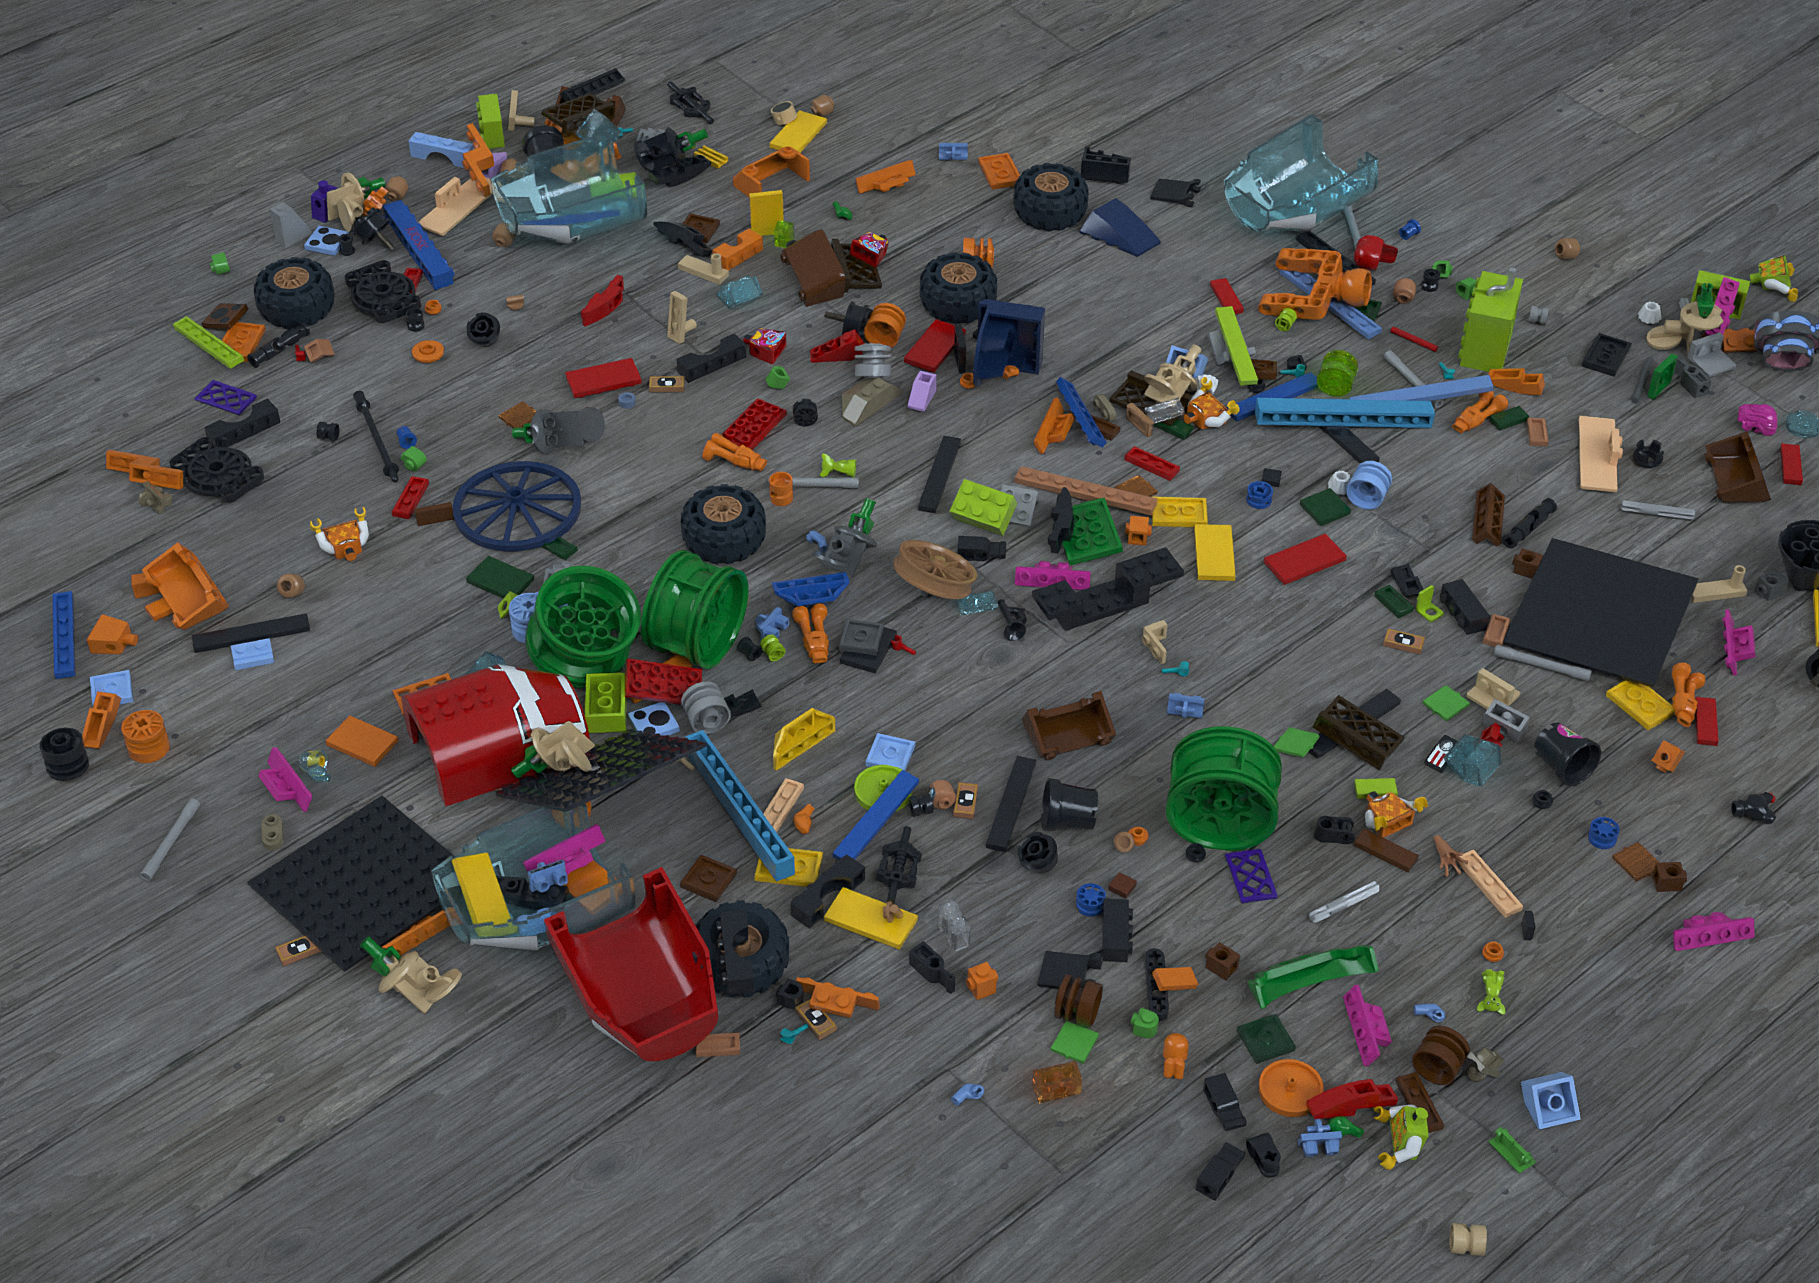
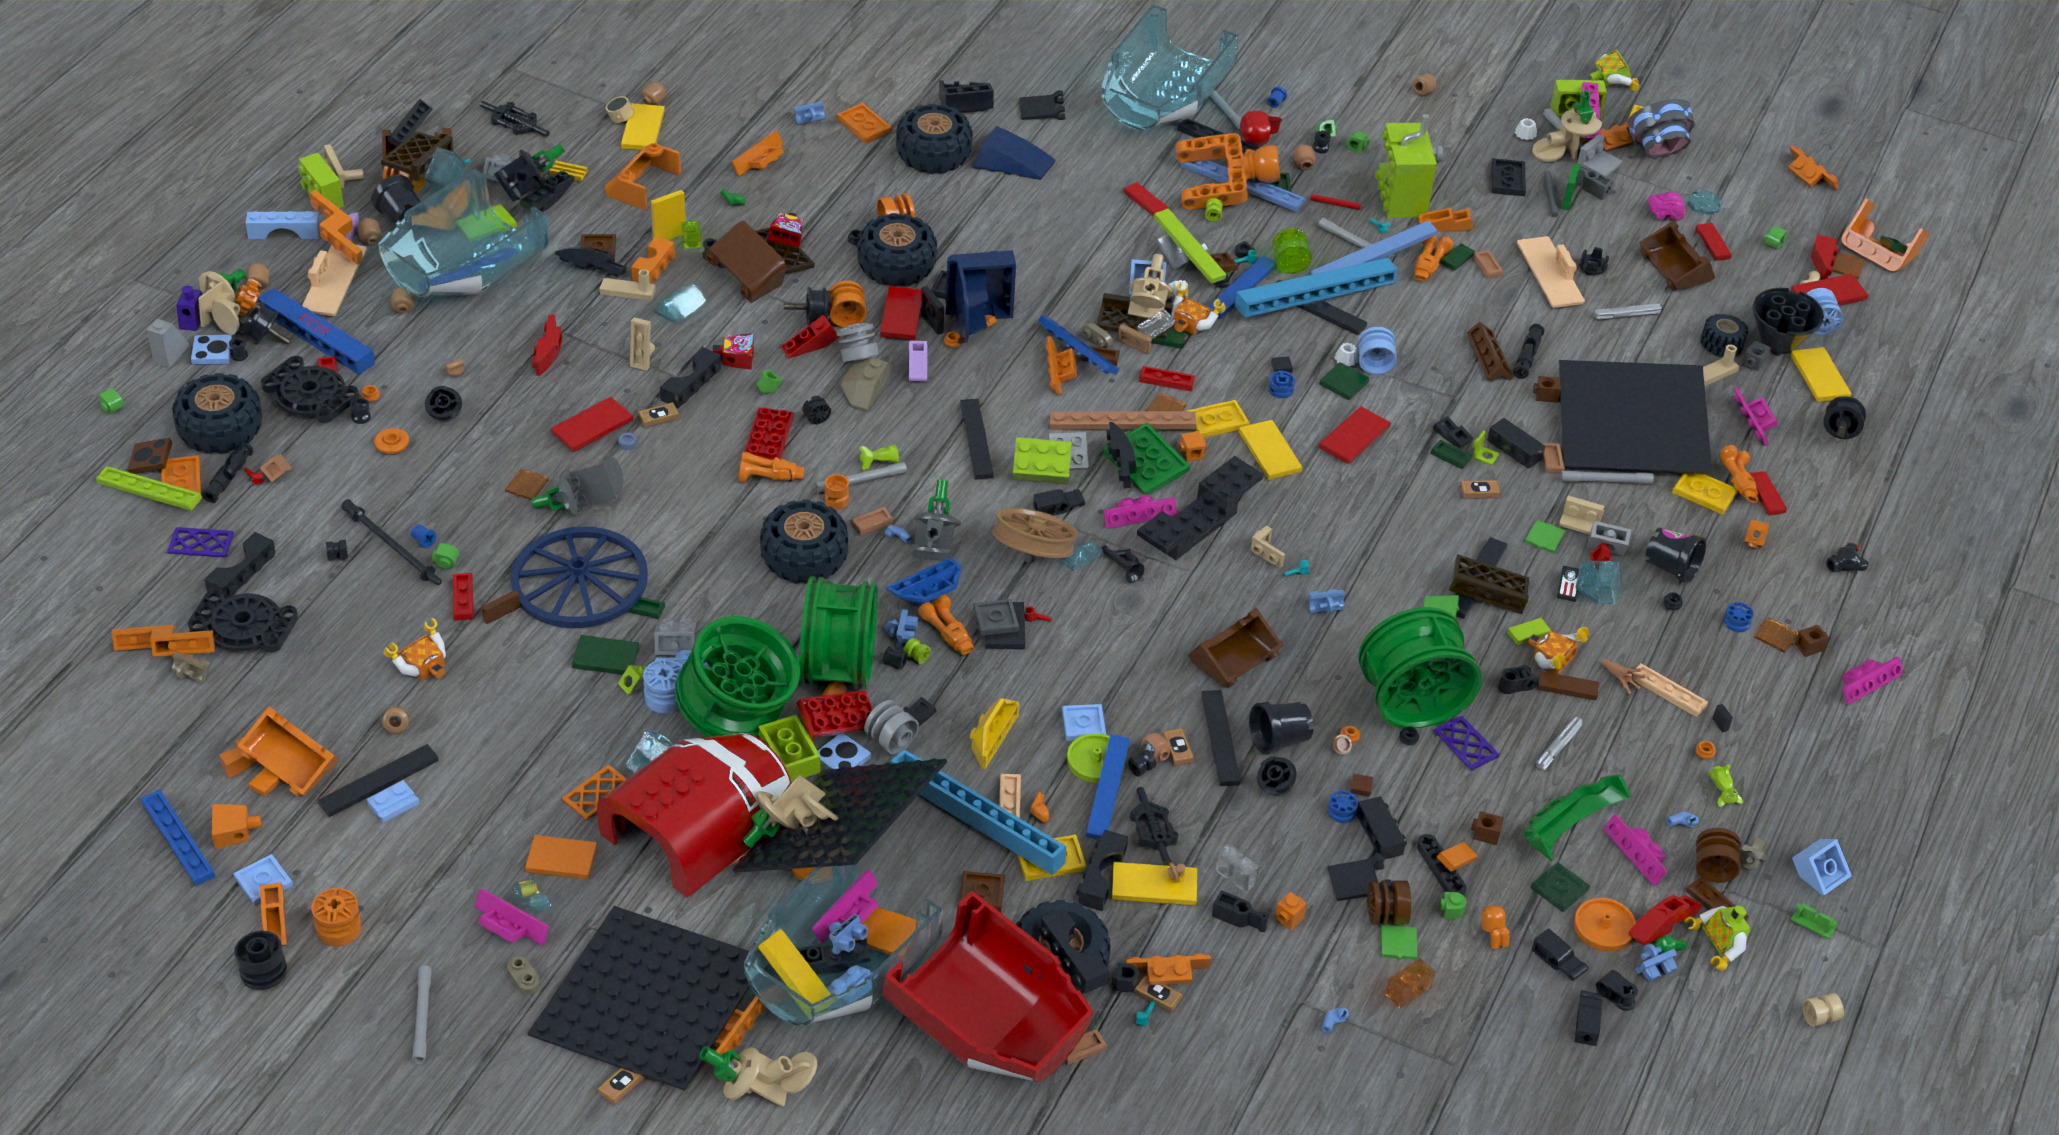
camera: 25 degrees left, 0 degrees up
(801, 523) = (872, 521): none -> nougat tile
(1748, 552) = (1723, 331): none -> black wheel

